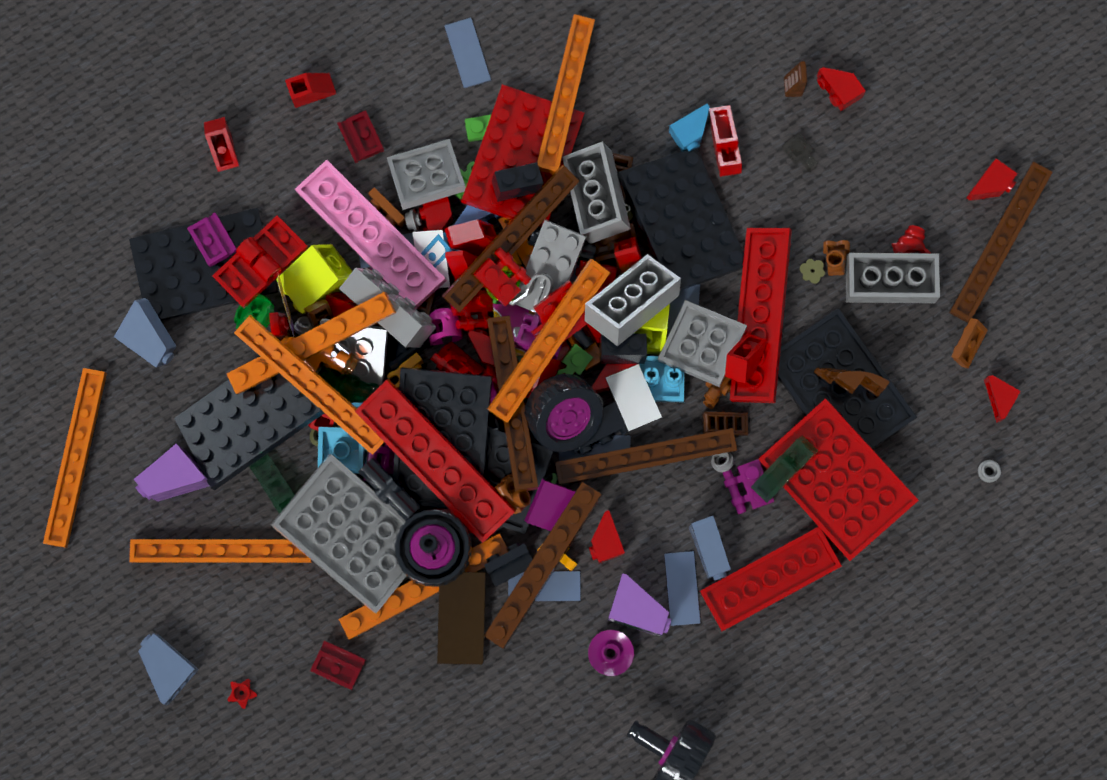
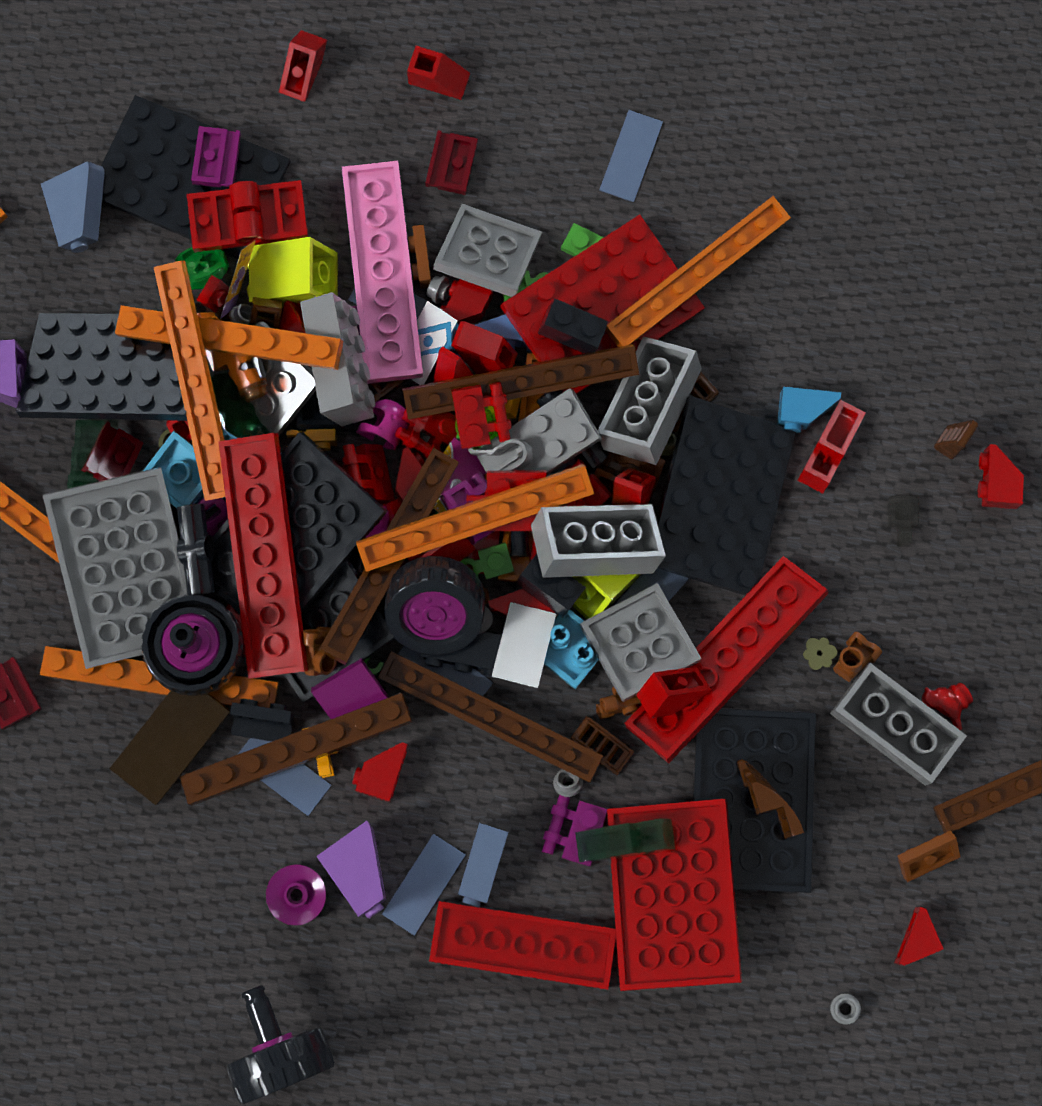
camera: 30 degrees right, 0 degrees up
(289, 470) = (112, 454): none -> dark red plate

